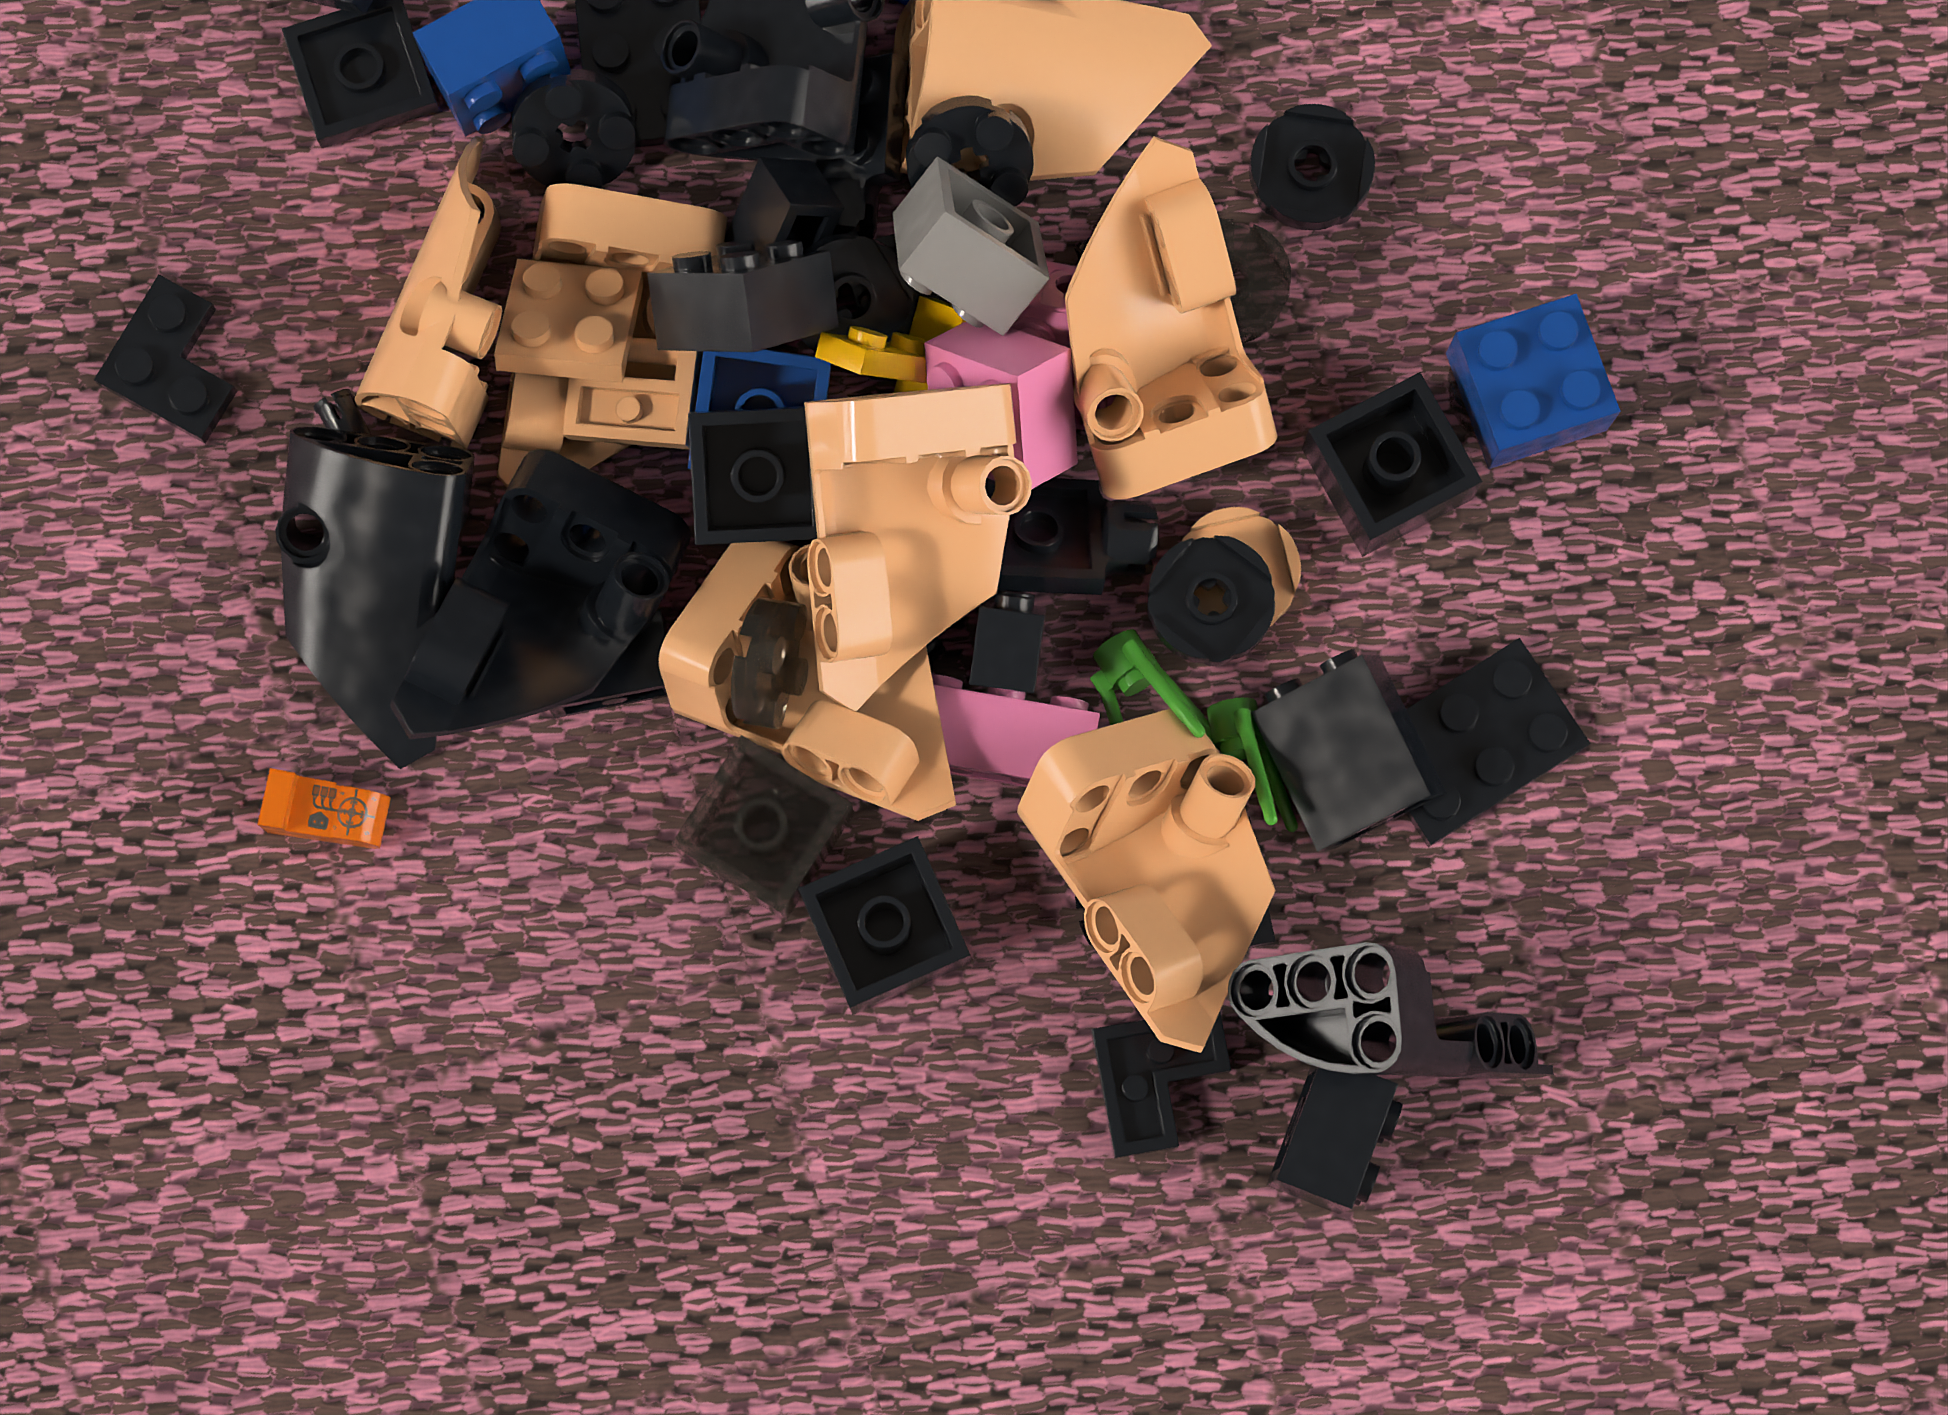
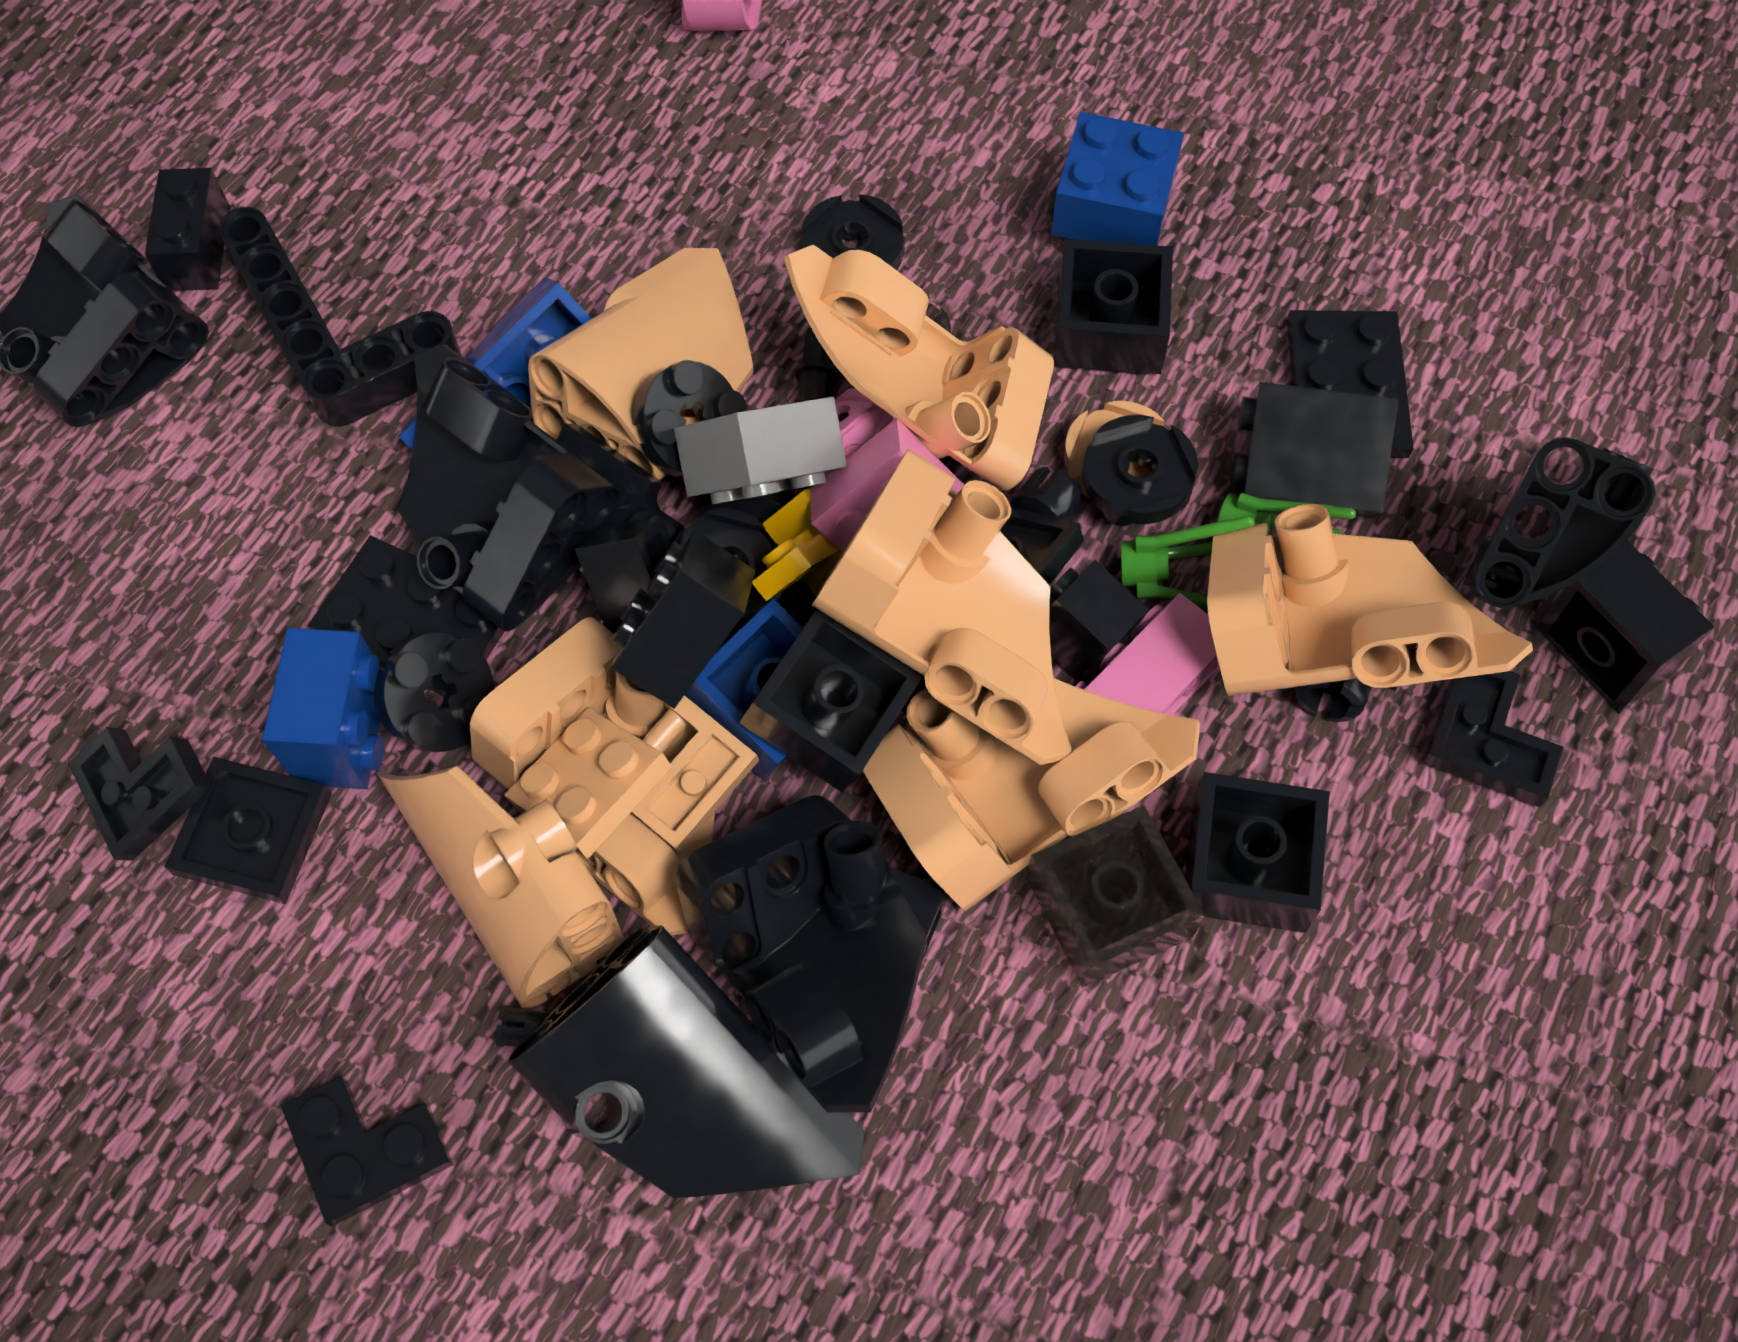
camera: 55 degrees left, 15 degrees down
(322, 810) = (855, 1263): orange leg -> none
(772, 664) = (986, 787): clear smoke plate -> none

